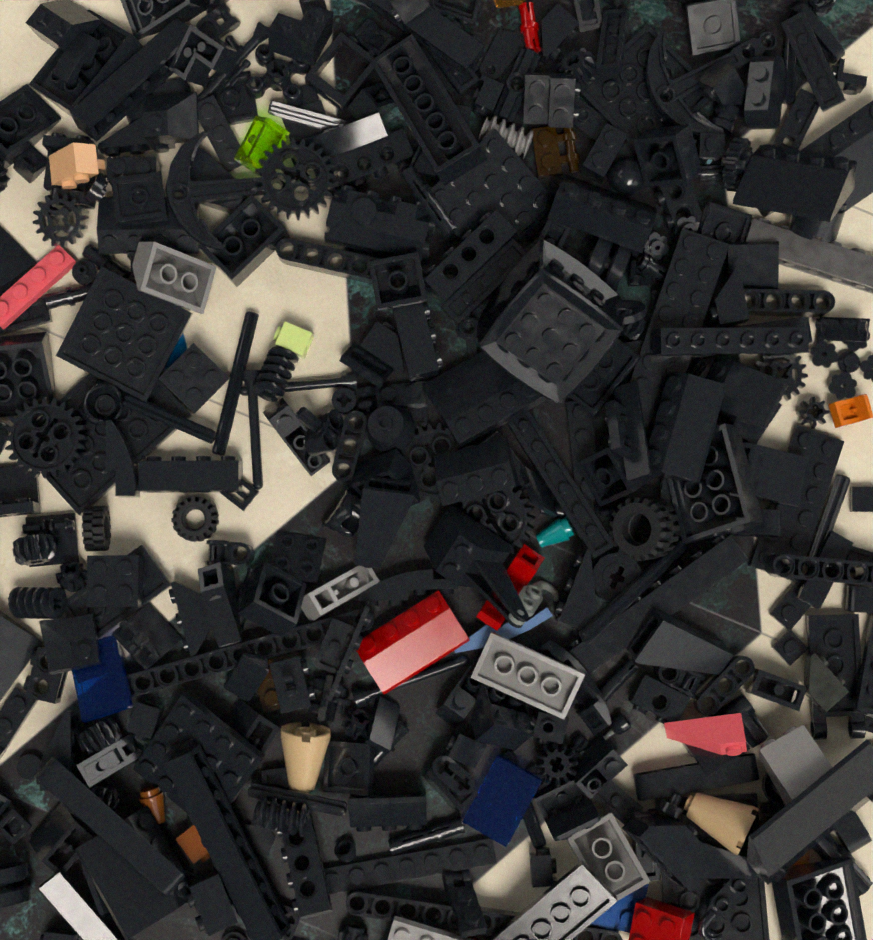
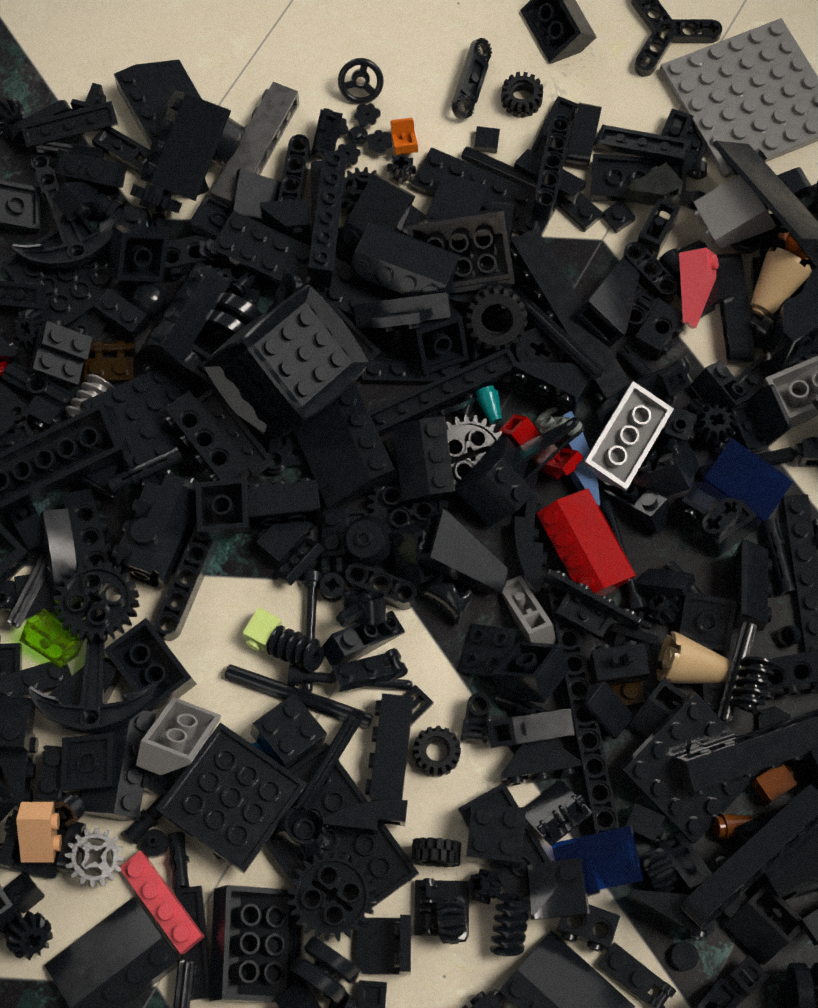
camera: 85 degrees left, 15 degrees down
(263, 445) = (368, 671): none -> black plate

